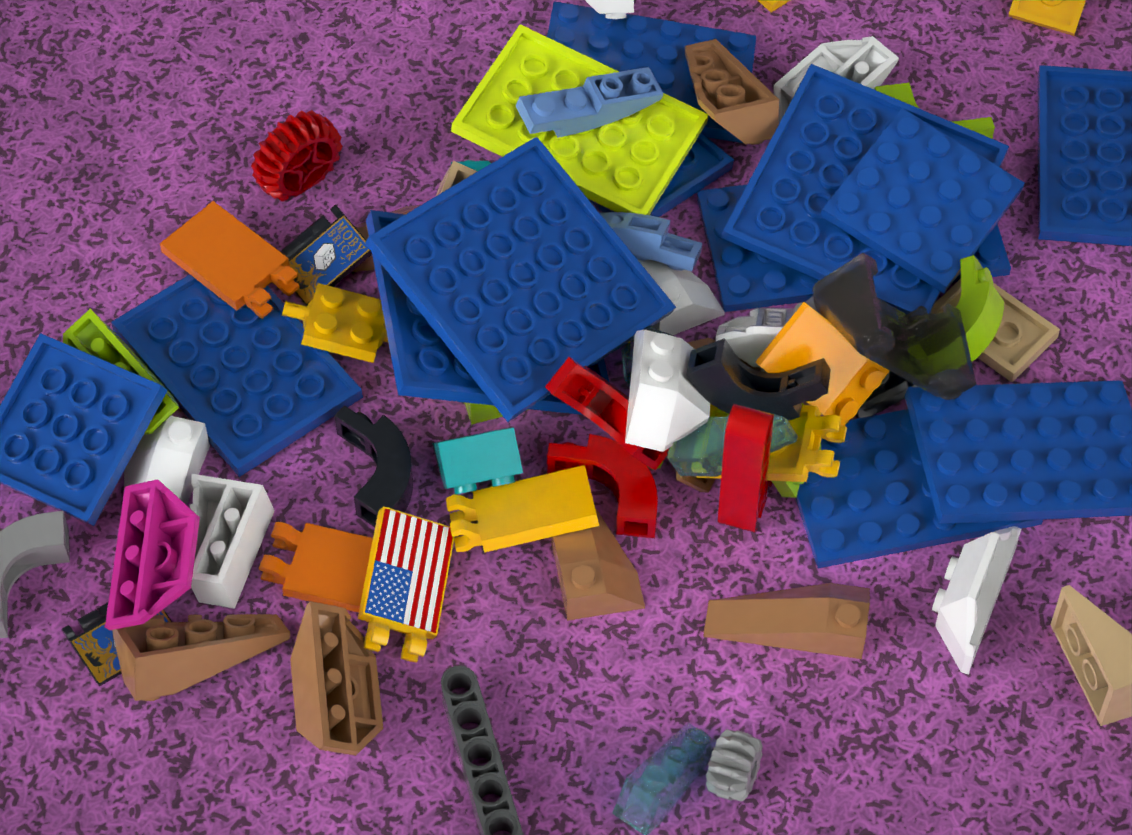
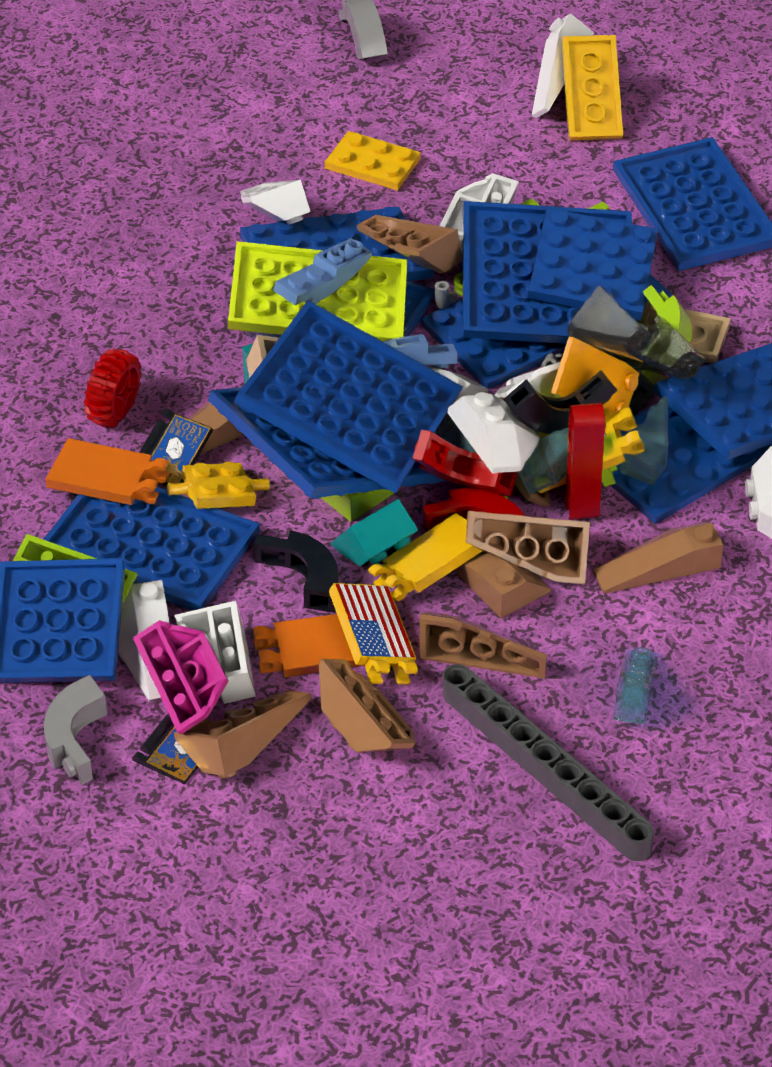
camera: 25 degrees left, 10 degrees down
(492, 633) = (461, 642): none -> medium nougat wedge
(651, 547) = (541, 545): none -> medium nougat wedge
(734, 173) = (442, 296): none -> light grey arm
(734, 765) = (681, 656): light grey gear -> none
(860, 467) = (654, 435): none -> clear light blue slope

